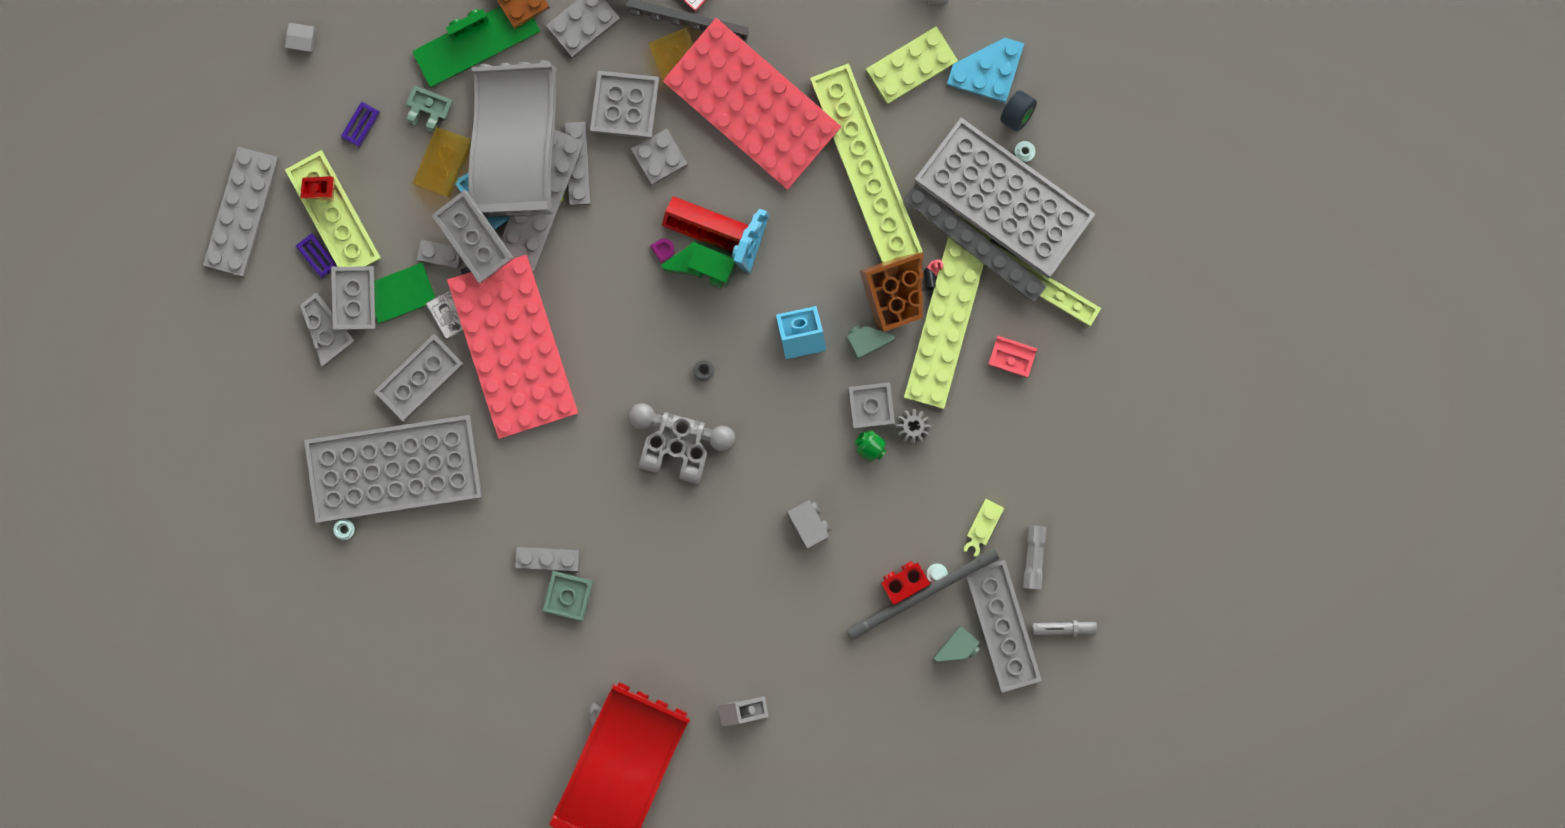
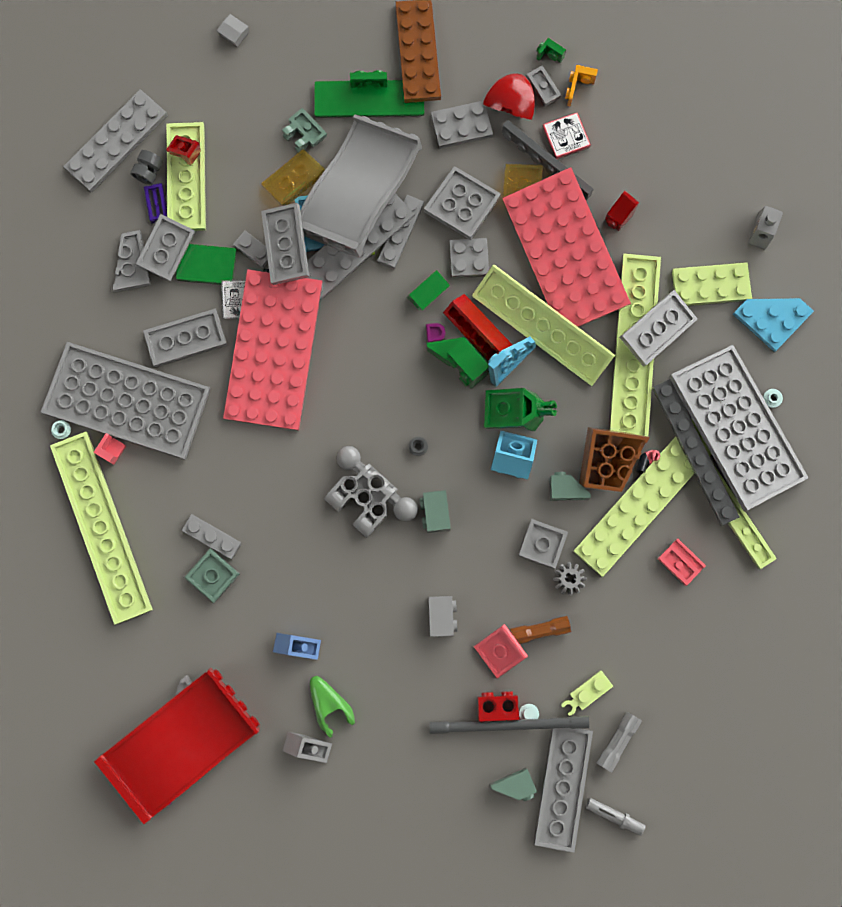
camera: 30 degrees right, 5 degrees down
(289, 224) = (146, 167): none -> dark grey wheel
(362, 105) = (248, 124): dark purple tile -> none
(403, 524) = (109, 449): none -> coral panel
(435, 604) = (101, 528): none -> yellowish green plate
(635, 211) = (428, 290): none -> green hinge
(684, 621) = (297, 646): none -> medium blue slope
(739, 659) = (327, 701): none -> bright green animal
(753, 426) = (436, 511): none -> sand green brick
(766, 190) = (543, 324): none -> yellowish green plate
(780, 287) = (516, 409): none -> green plate
(787, 37) = (621, 211): none -> red slope
(870, 446) = (525, 577): green head -> none
(880, 137) = (658, 328): none -> light grey plate
(881, 528) = (500, 651): none -> coral tile
(921, 480) = (554, 627): none -> dark orange axle
(1018, 110) = (784, 361): black wheel -> none

